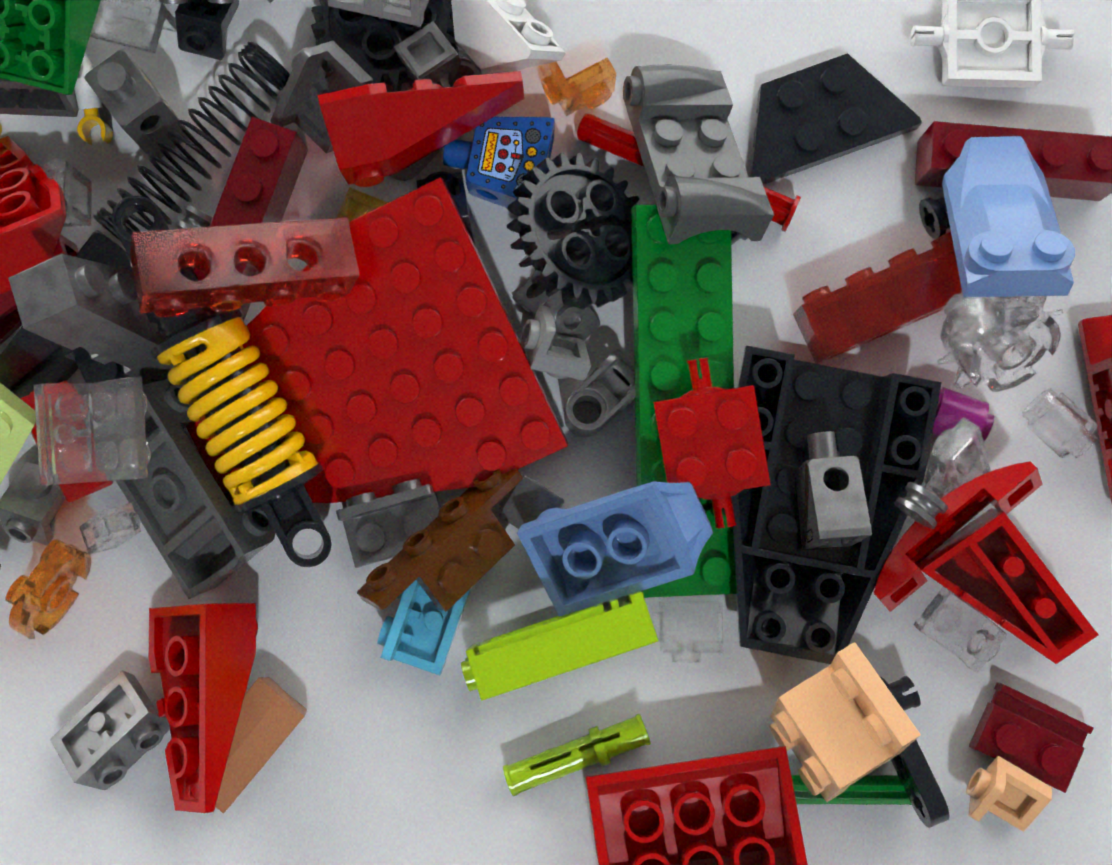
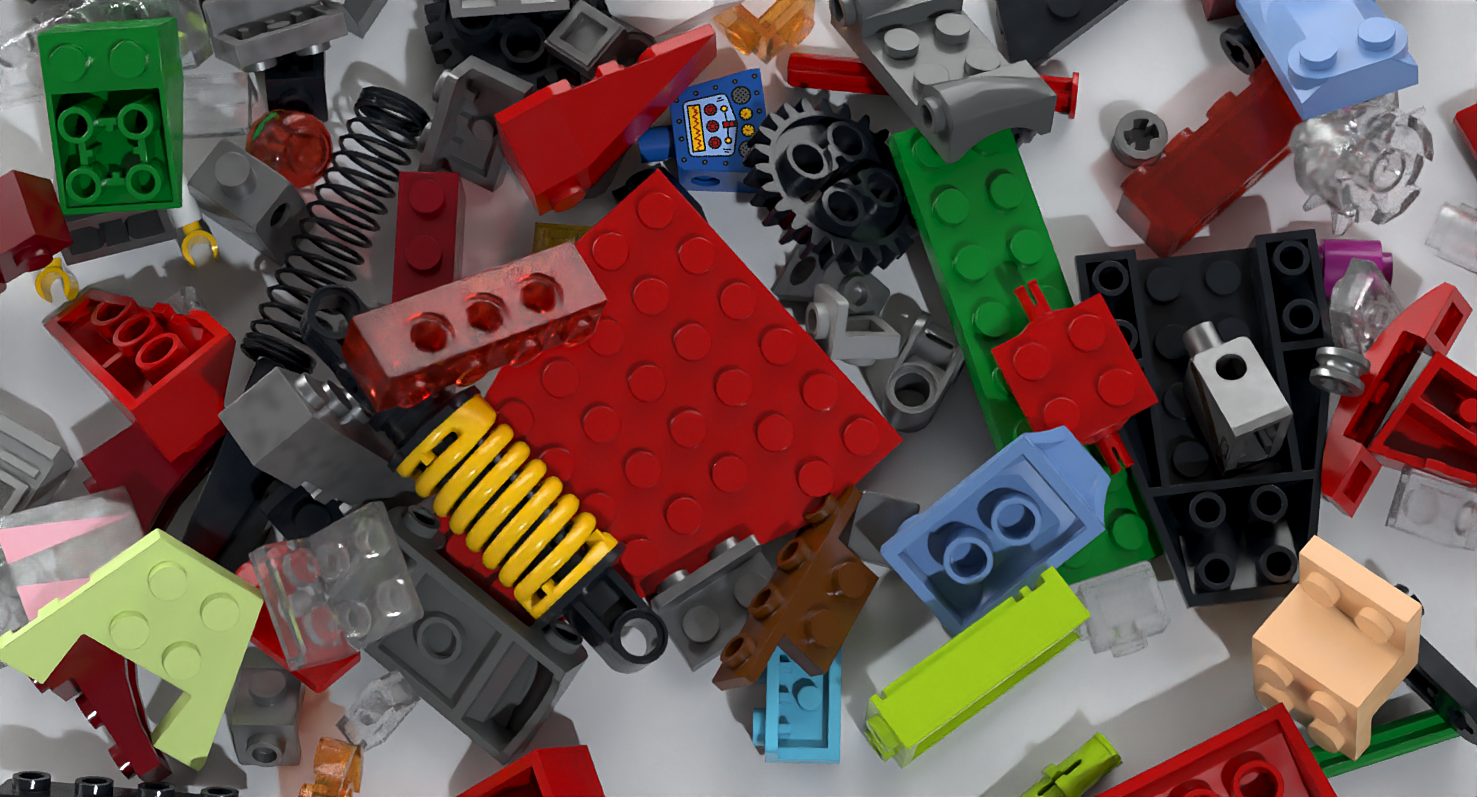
camera: 20 degrees left, 10 degrees down
(187, 83) = (291, 145): none -> clear red head
(843, 255) = (1151, 125): none -> flat silver bush

